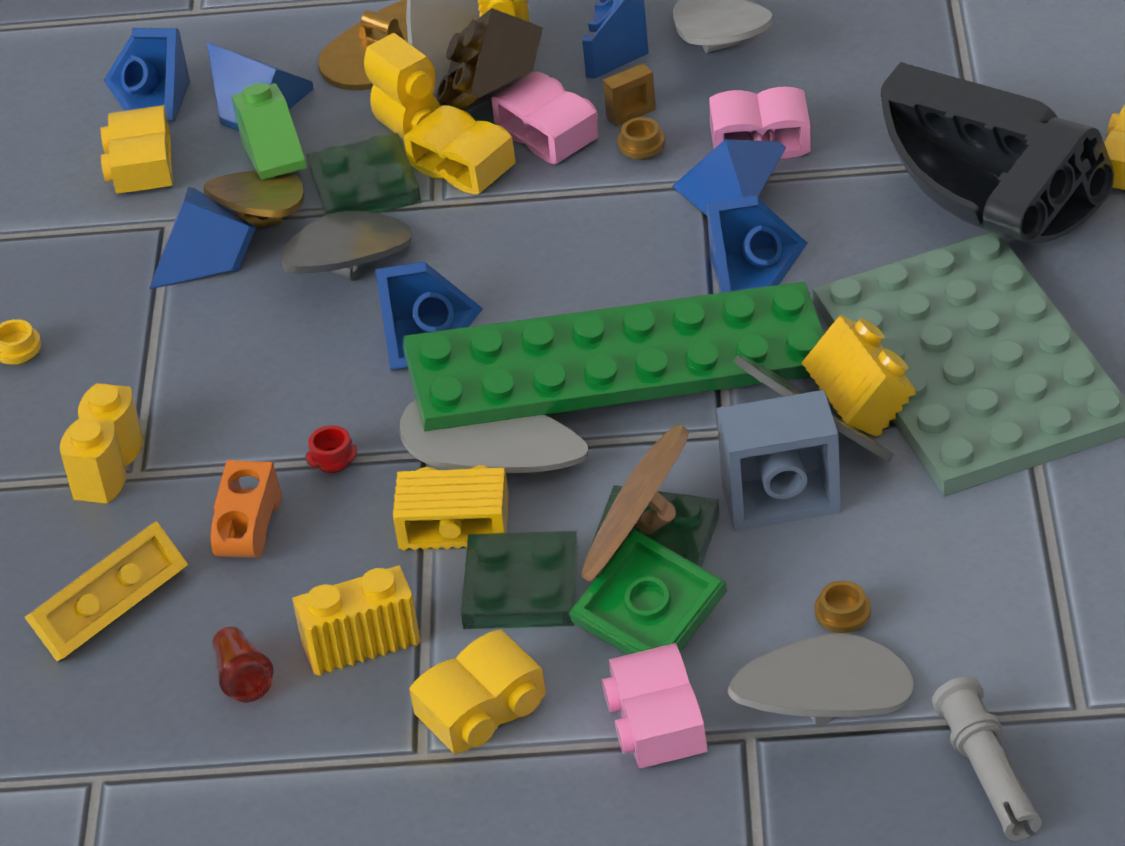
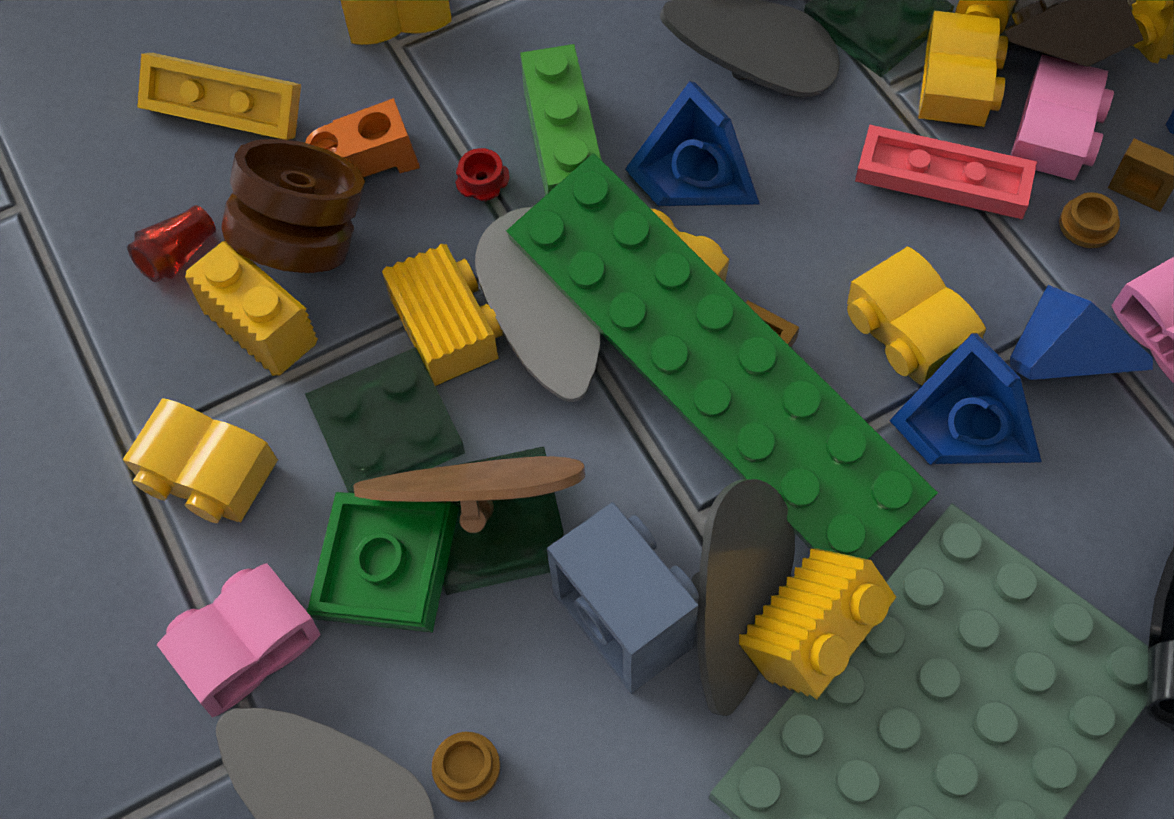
camera: 60 degrees right, 20 degrees up
(291, 544) = (291, 205): none -> reddish brown wheel
(333, 380) = (557, 112): none -> bright green brick
(542, 192) = (946, 171): none -> coral plate
(654, 249) = (911, 314): none -> yellow brick

